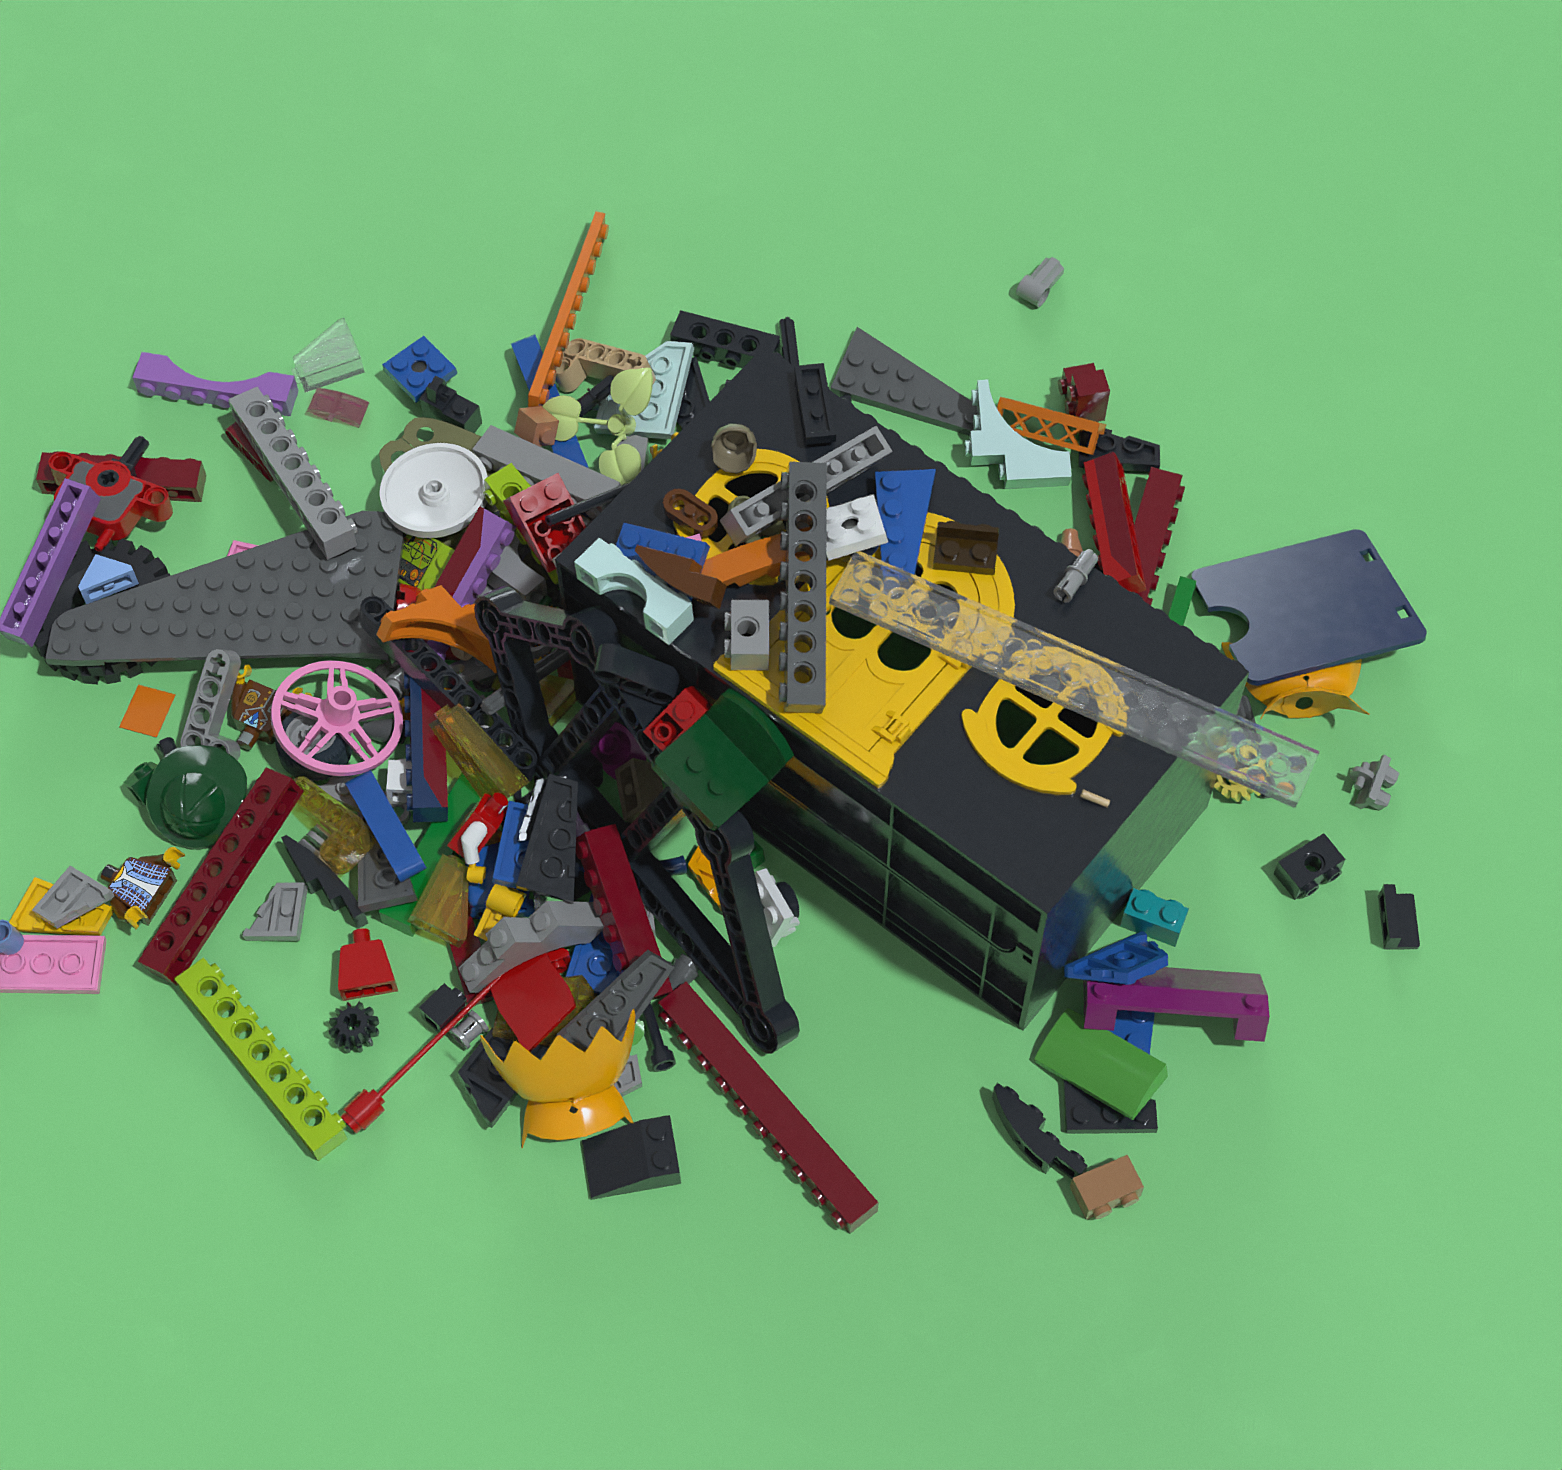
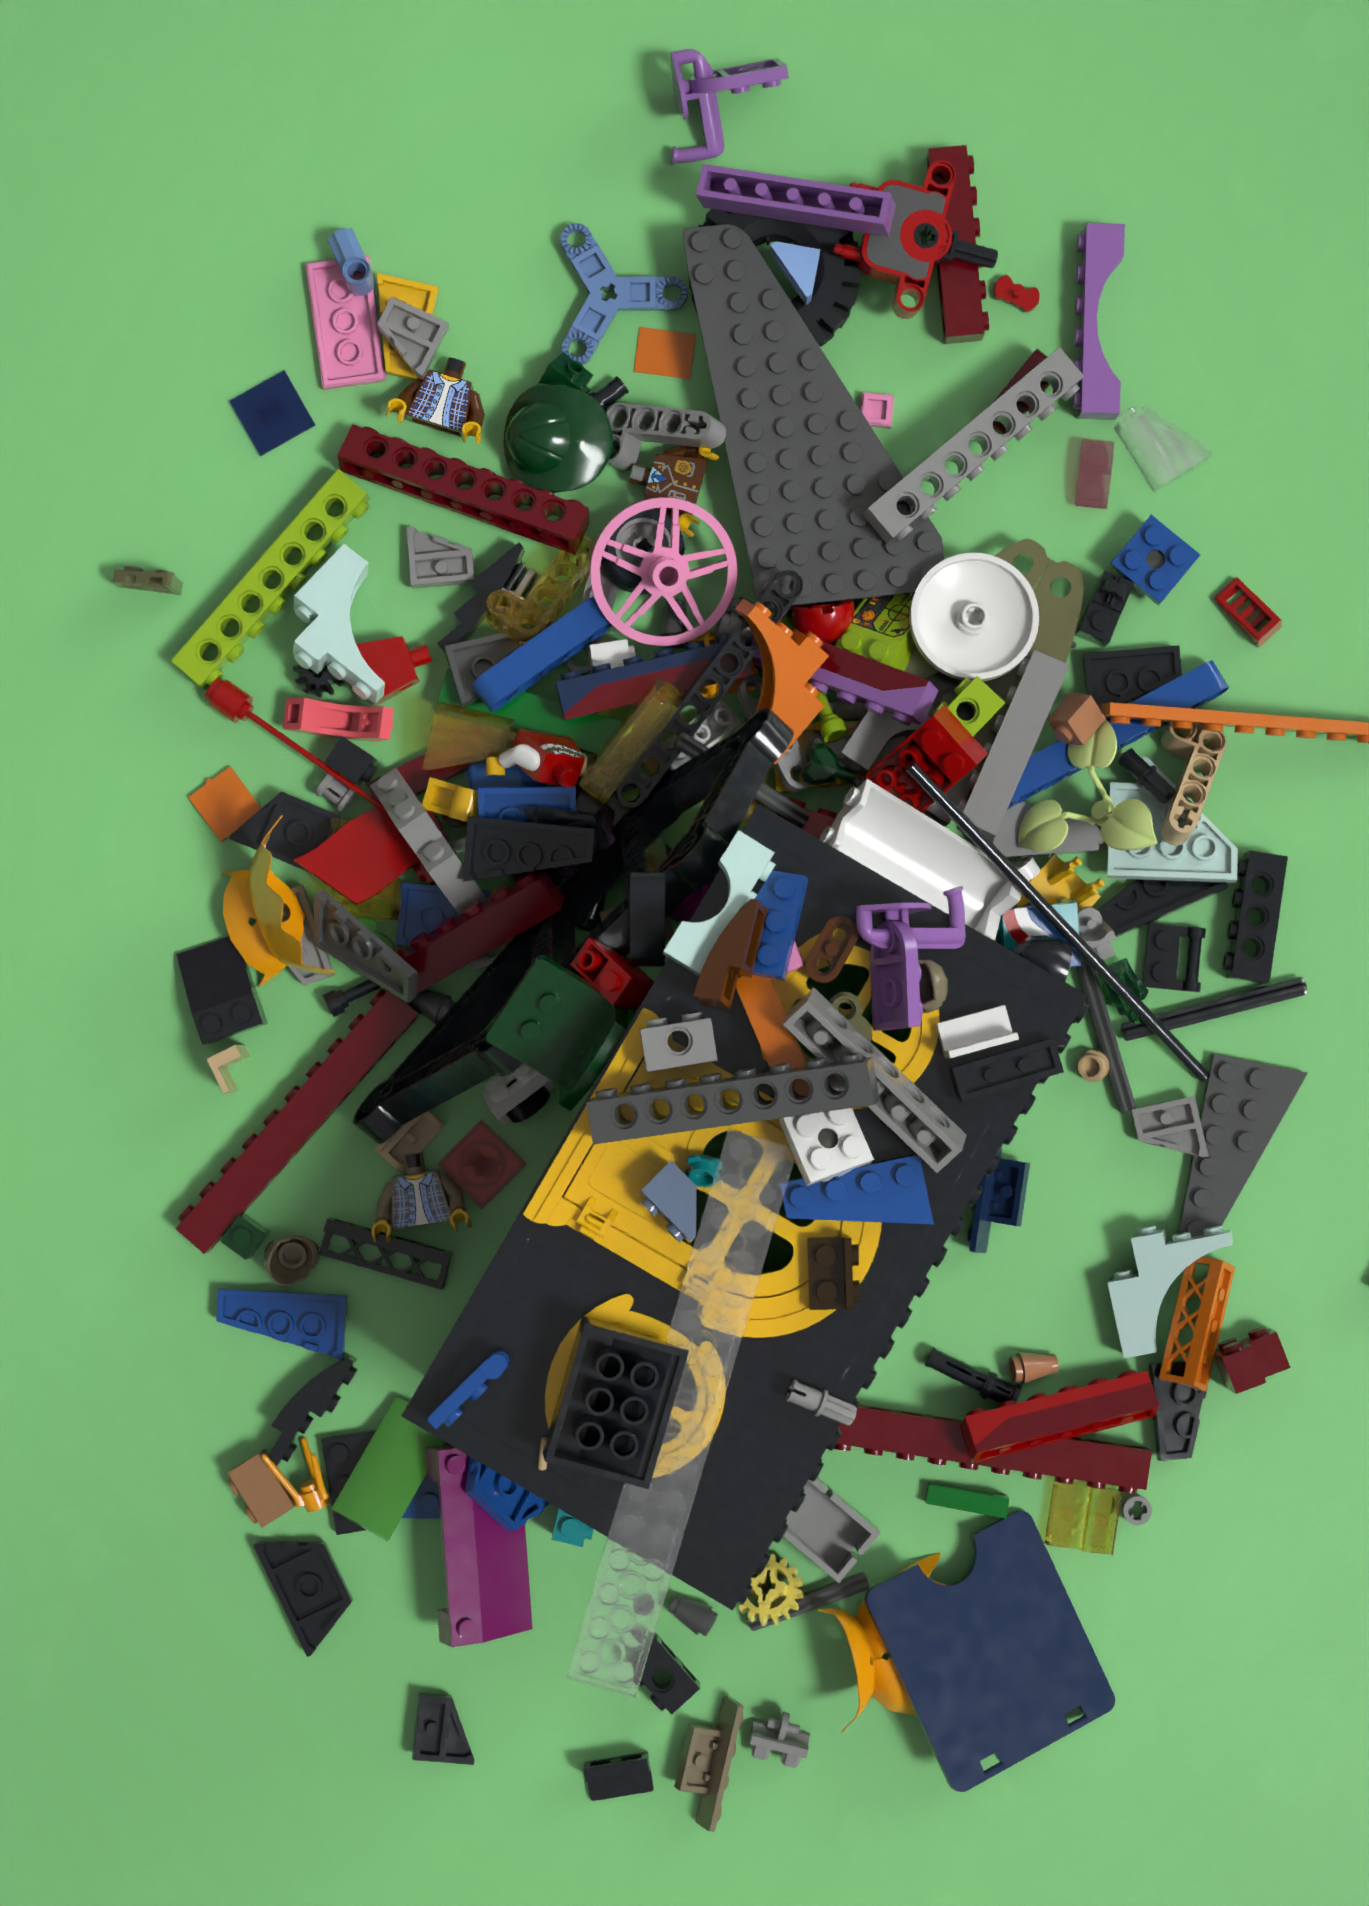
camera: 85 degrees right, 25 degrees up
(64, 749) = (632, 293): none -> medium blue piece
(107, 1040) = (272, 413): none -> clear blue piece
(175, 442) = (1016, 294): none -> red piece
(234, 1164) = (157, 581): none -> olive wing
(328, 1000) = (329, 638): none -> light aqua arch
(403, 1022) = (338, 720): none -> coral arch
(458, 1133) = (225, 803): none -> orange piece
(489, 320) = (1266, 613): none -> red slope
(505, 398) = (1129, 673): none -> black wing
(706, 1161) = (221, 1061): none -> tan panel
(711, 457) = (895, 956): none -> medium lavender plate
(780, 421) = (975, 1032): none -> white panel
(810, 1023) = (410, 1139): none -> tan hinge
(832, 958) = (481, 1164): none -> clear red piece
(856, 1007) = (419, 1199): none -> torso
(862, 633) = (701, 1169): none -> teal plate
(868, 1166) = (245, 1236): none -> dark green brick
(885, 655) = (674, 1199): none -> sand blue slope
(890, 412) = (1172, 1126): none -> light grey wing
(890, 1043) = (397, 1244): none -> black fence
(894, 1131) = (290, 1259): none -> dark tan hair
(950, 1136) = (289, 1317): none -> blue wing
(1029, 845) = (470, 1388): none -> blue hinge
(1055, 722) = (614, 1403): none -> black slope
(1117, 1140) = (313, 1492): none -> light orange plant
(1191, 495) = (1143, 1517): none -> light grey bush
(1201, 531) = (1083, 1518): none -> clear yellow slope
(1203, 1162) = (306, 1586): none -> black wing
(1258, 836) = (693, 1614): none -> dark grey cone
(1348, 1064) = (439, 1732): none -> black wing
(1389, 839) = (707, 1761): none -> dark tan bracket

